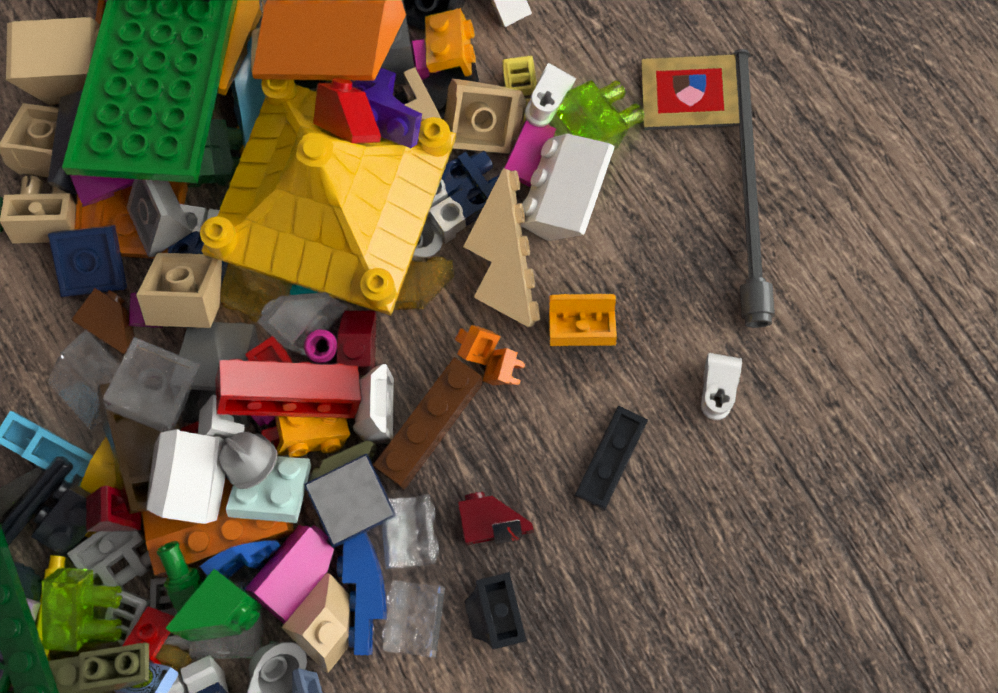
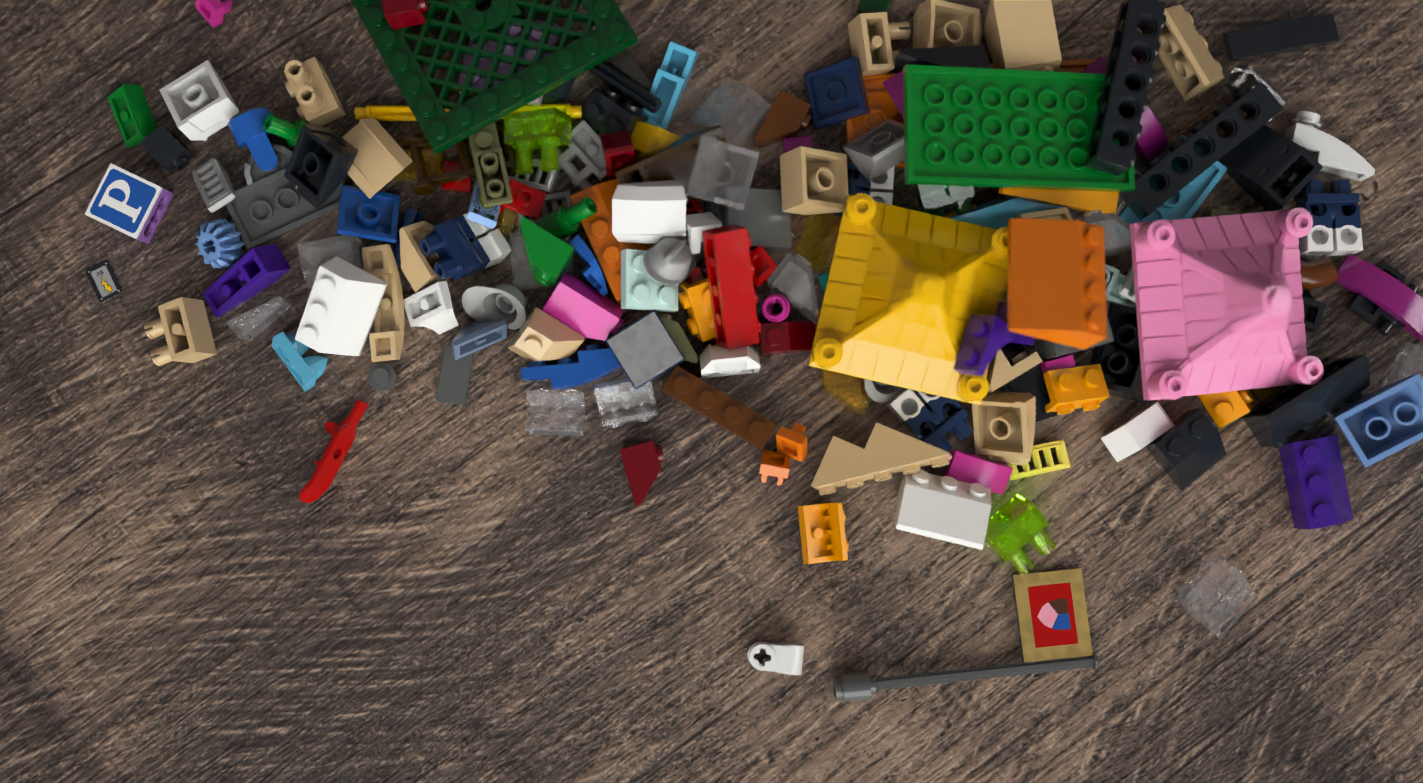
camera: 80 degrees right, 10 degrees up
(345, 112) = (975, 308): red slope -> none
(495, 612) = (566, 480): black slope -> none
(507, 531) = (631, 484): black sticker -> none
(548, 95) = (1034, 486): white piece -> none
(611, 458) = (705, 567): black tile -> none

